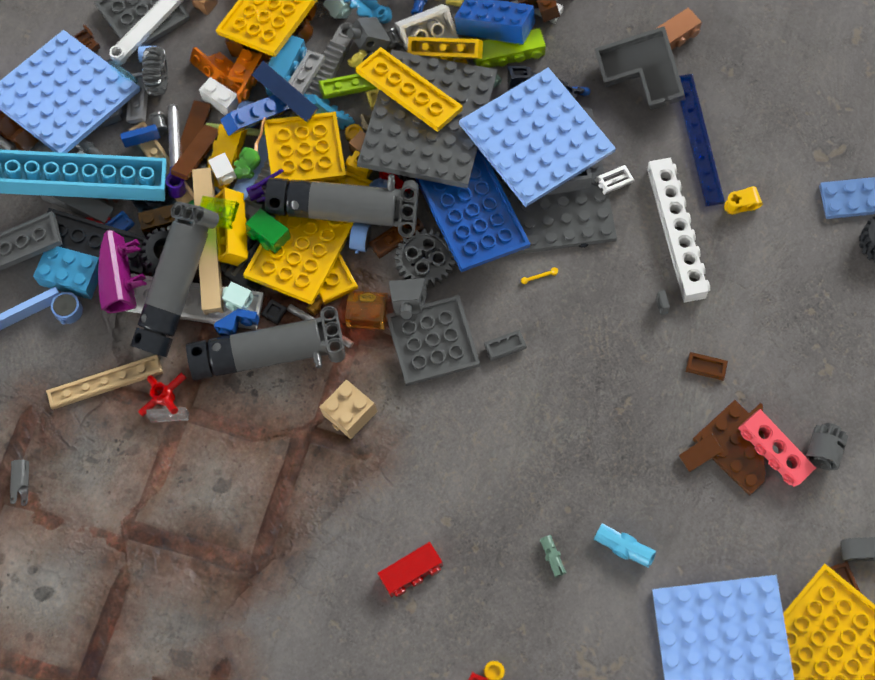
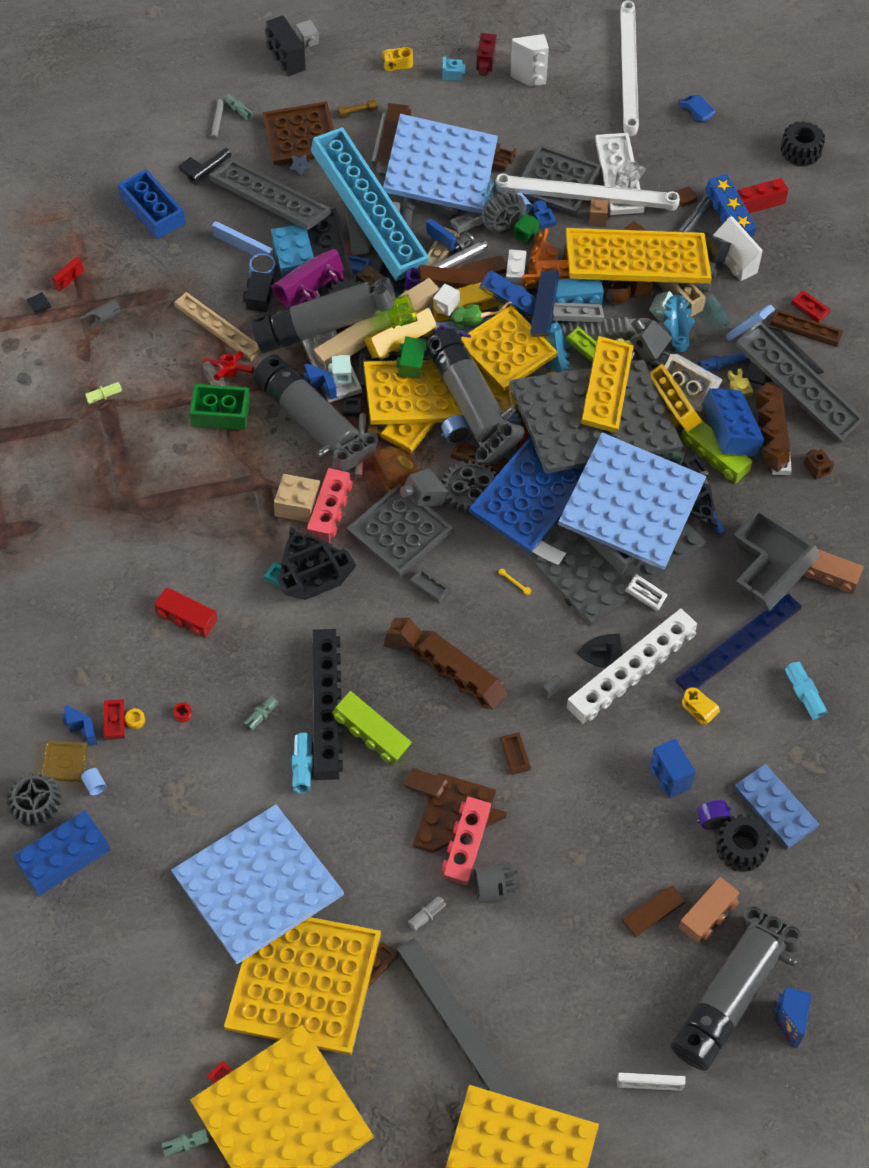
camera: 55 degrees right, 10 degrees down
(92, 324) = (258, 291): none -> black brick
(113, 525) = (102, 393): none -> yellowish green axle
(177, 44) = (543, 214): none -> blue plate
(180, 64) = (526, 229): none -> green brick
(204, 425) = (220, 406): none -> green brick
(389, 409) = (333, 481): none -> coral brick
(417, 468) = (272, 574): none -> teal plate
(429, 432) = (312, 566): none -> black wedge
(511, 618) = (182, 706): none -> red bush
(535, 230) = (549, 553): none -> white sticker
(547, 394) = (402, 634): none -> reddish brown slope
(580, 504) = (326, 768): none -> black brick
(598, 368) = (462, 670): none -> reddish brown brick
(627, 468) = (371, 728): none -> lime brick
(646, 244) = (602, 650): none -> black shield
(773, 115) = (806, 690): none -> medium azure piece
(794, 252) = (672, 768): none -> blue brick
(821, 517) = (426, 913): none -> light grey axle
(849, 245) = (713, 814): none -> dark purple piece

